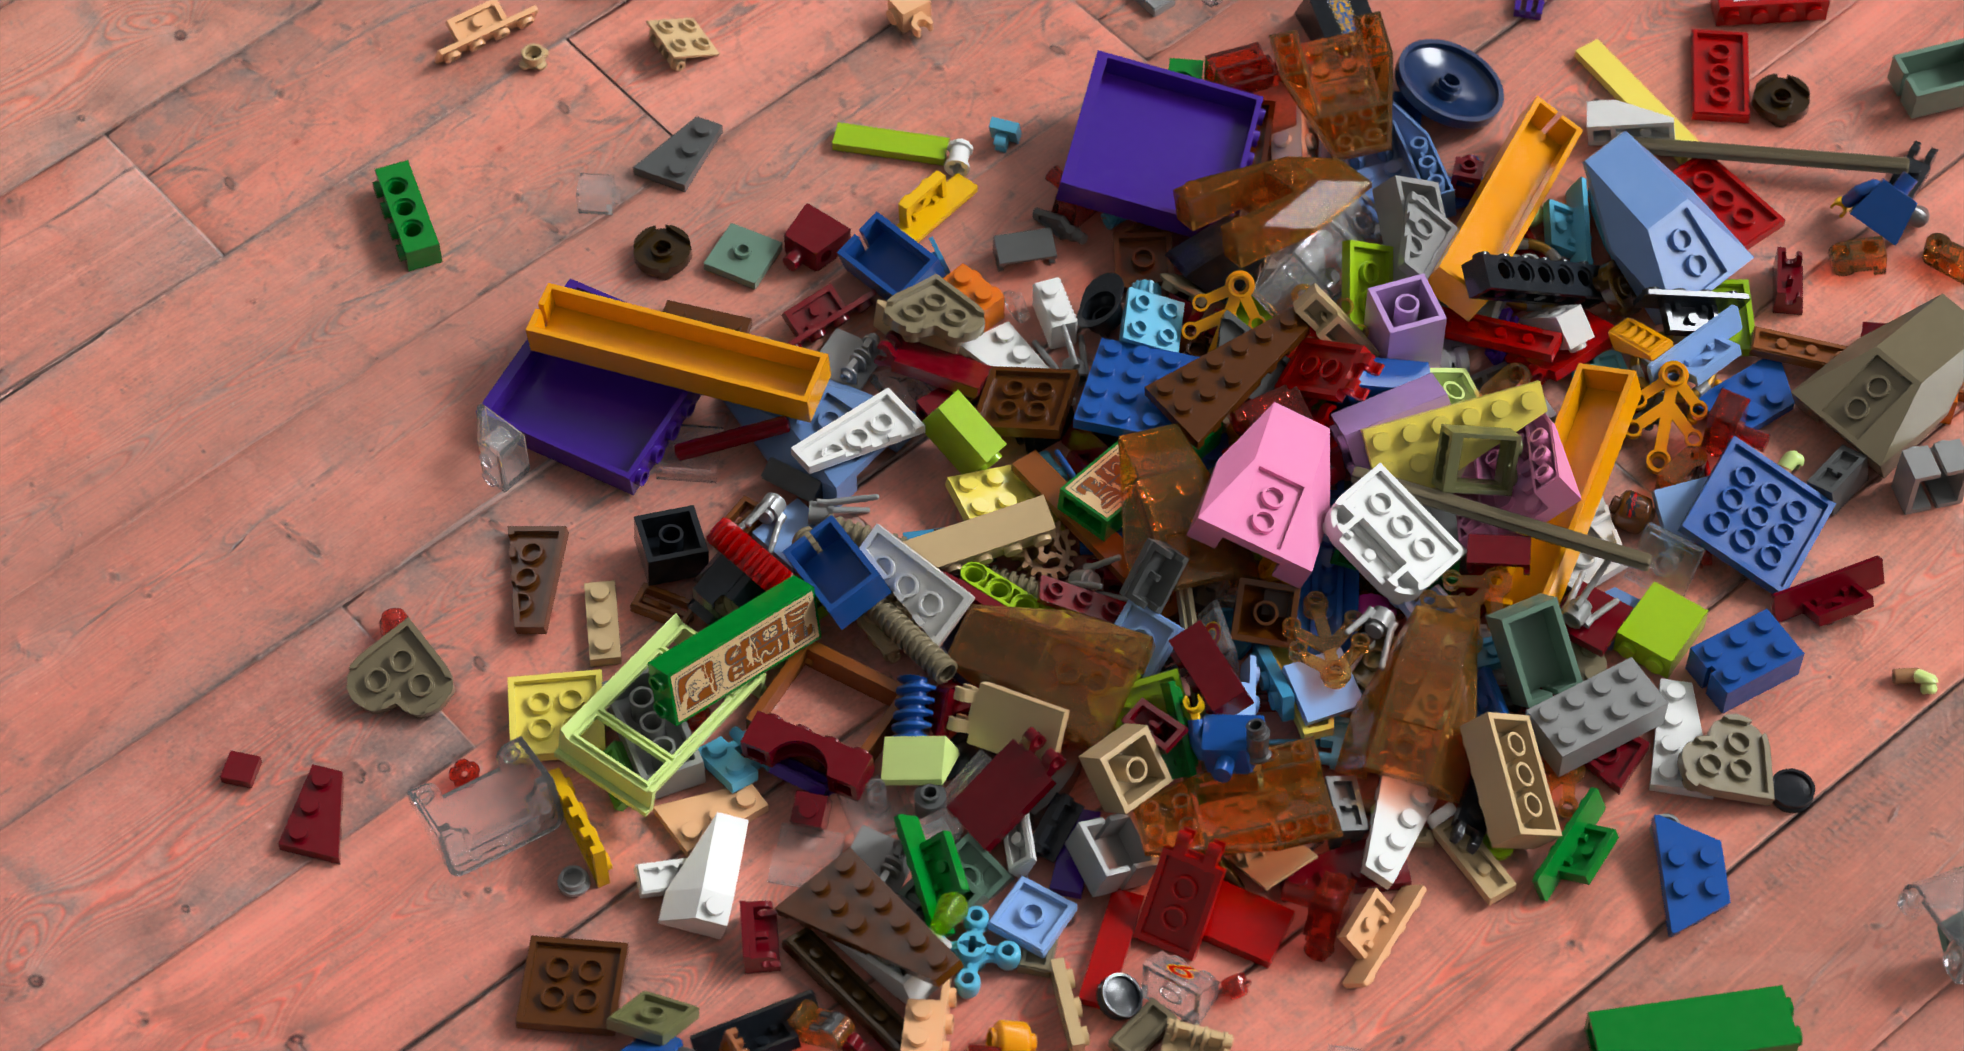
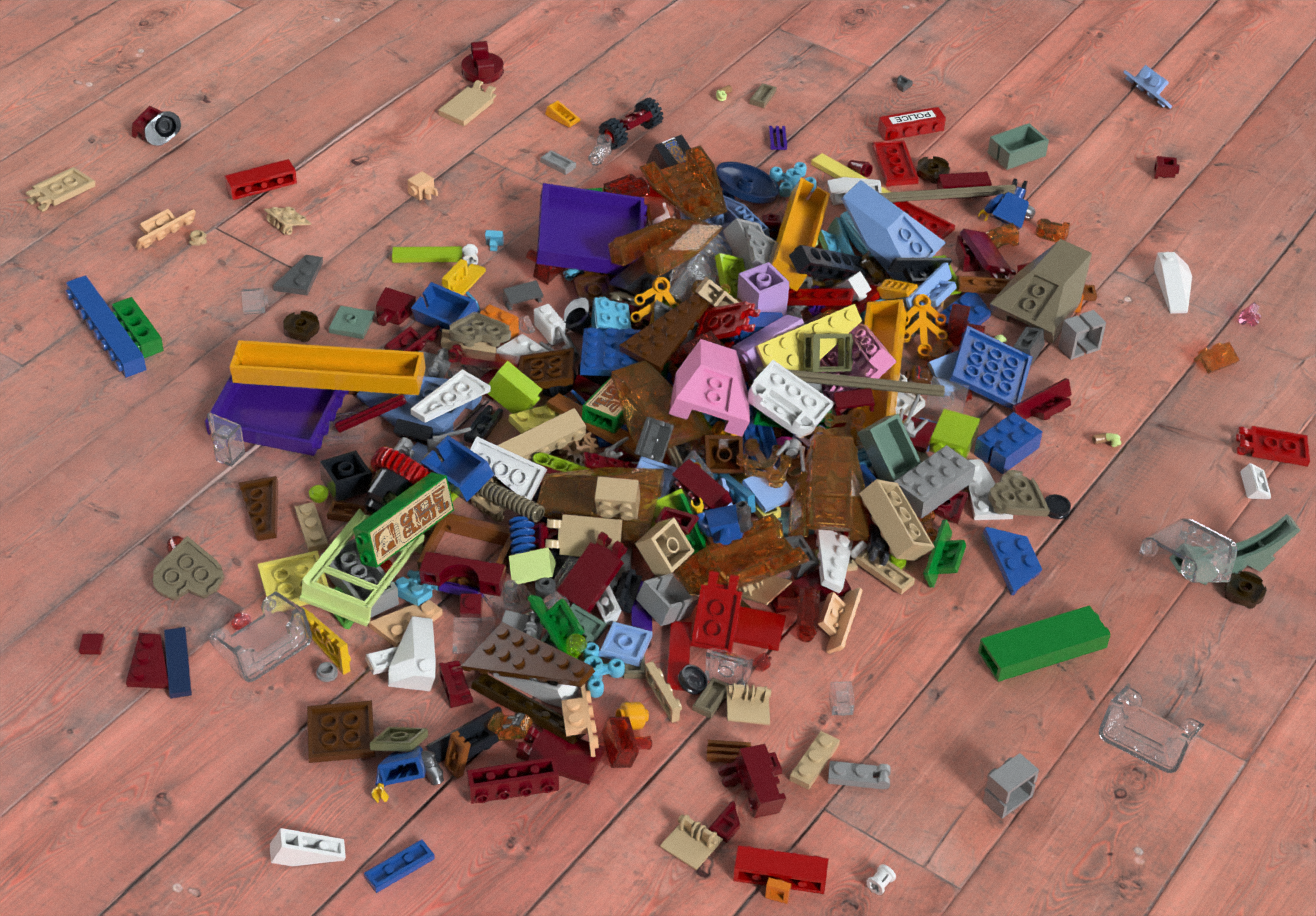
camera: 15 degrees left, 10 degrees down
(359, 824) = (177, 662): none -> dark blue tile
(360, 206) = (105, 326): none -> blue brick
(625, 565) = (318, 493): none -> lime plate
(906, 485) = (483, 424): none -> black hinge
(1060, 226) = (541, 279): dark grey piece -> none
(1065, 678) = (617, 498): none -> tan brick
(1530, 85) = (790, 178): none -> medium azure gear
(1655, 79) = (861, 167): none -> dark red cone
(1820, 290) = (987, 253): none -> dark red tile
(1825, 135) = (963, 180): none -> dark red brick

